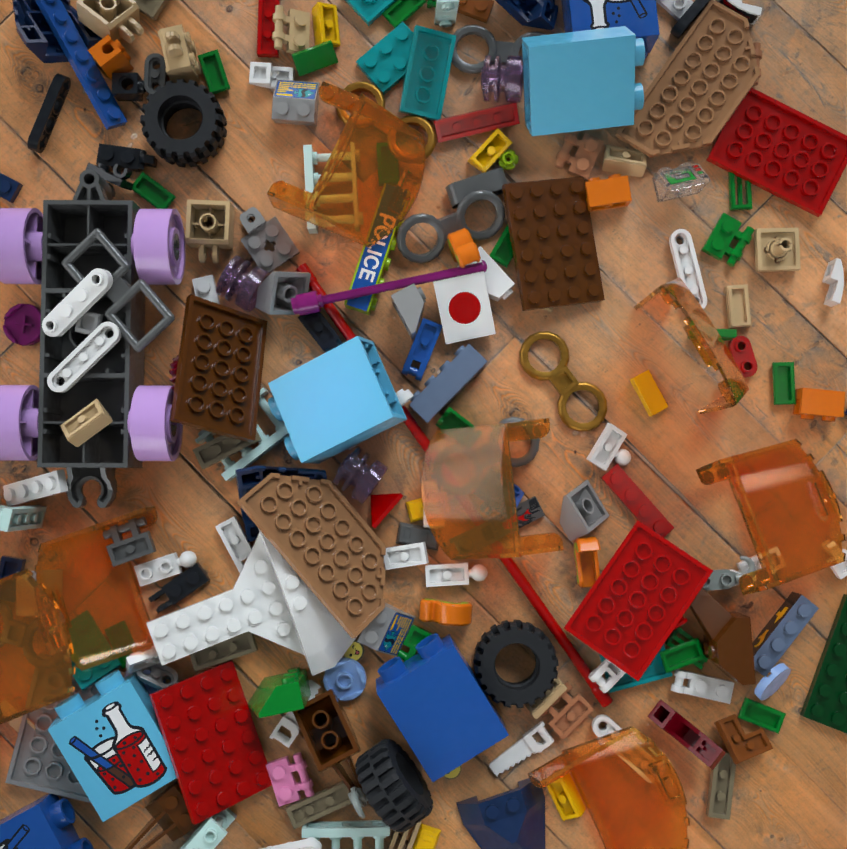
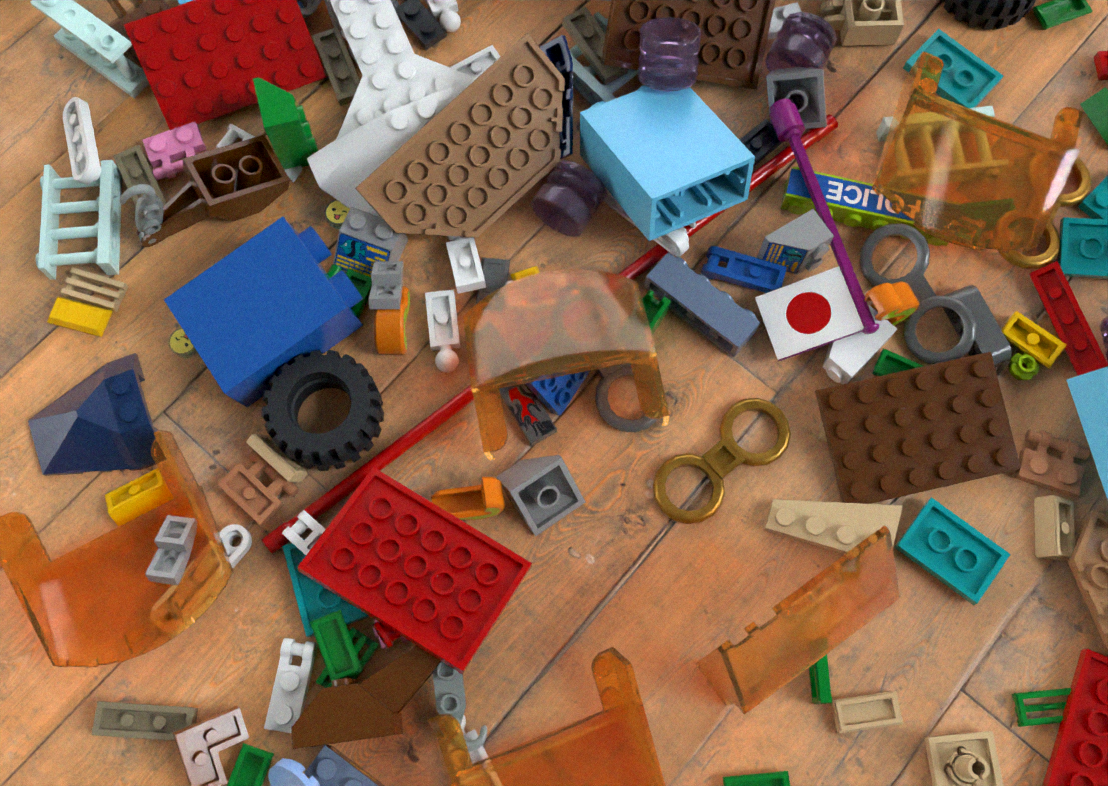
camera: 90 degrees right, 15 degrees down
(259, 390) = (669, 54): none -> clear purple wheel
(261, 232) = (871, 73): light grey plate -> none
(264, 165) = (964, 75): none -> teal plate
(266, 75) = (1071, 70): white slope -> none
(295, 102) = (1040, 94): light grey slope -> none
(346, 679) = (303, 204): light blue tile -> none
(382, 505) = (527, 236): red slope -> none
(393, 785) = (159, 250): black tyre -> none
(424, 615) = (386, 285): none -> light grey slope
(522, 748) = (205, 434): white piece -> none
(607, 192) = (1003, 501): orange brick -> none
(608, 448) = (634, 525): white plate -> none
(611, 768) = (174, 549): none -> light grey slope
(618, 303) = (831, 524): none -> tan wing
(636, 500) = (557, 574): red plate -> none
(637, 233) = (952, 551): none -> teal plate
(648, 393) = (719, 582): yellow slope -> none
(680, 181) = (1040, 605): clear slope -> none
(687, 264) = (910, 629): white plate -> none
(687, 734) = (224, 659): dark red arch -> none
(721, 237) = (970, 681): green plate -> none
(743, 356) = (791, 723): red plate -> none

